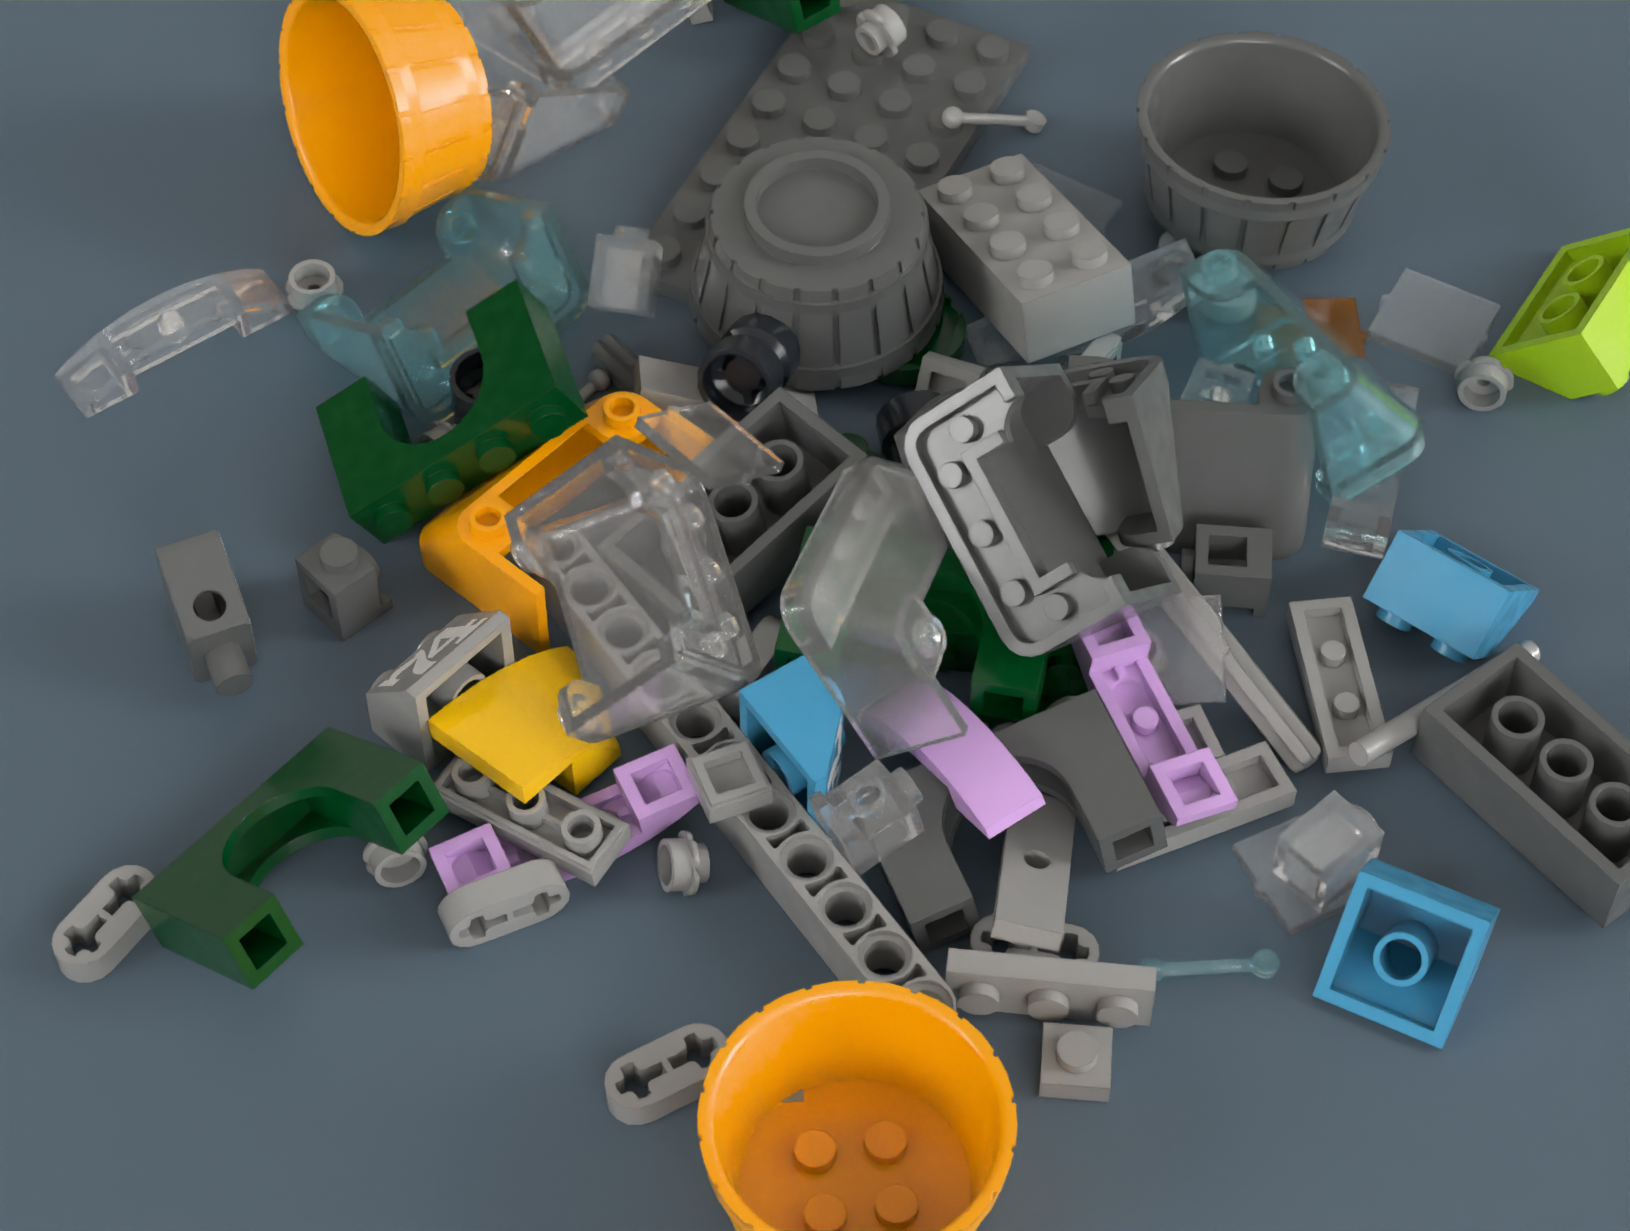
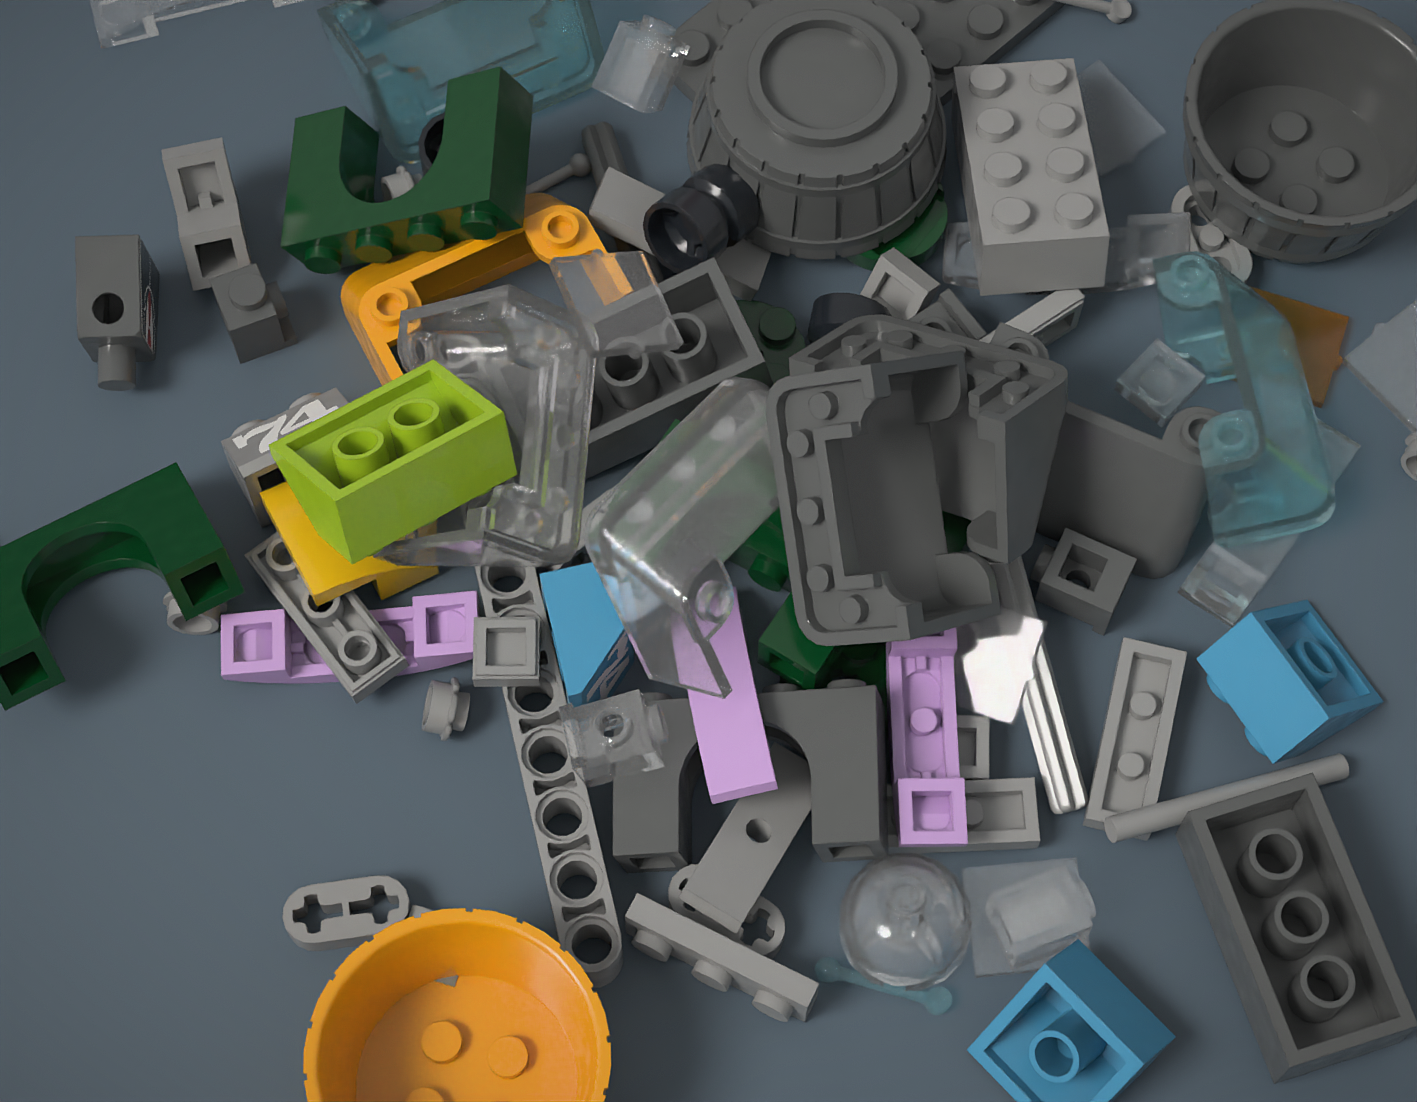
camera: 20 degrees right, 15 degrees up
(258, 509) = (206, 210): none -> light grey brick
(503, 902) = (268, 691): light grey beam -> none
(560, 633) = (395, 459): none -> lime slope
(1075, 1062) = (717, 1036): light grey plate -> none
(1206, 896) = (905, 921): none -> clear cylinder

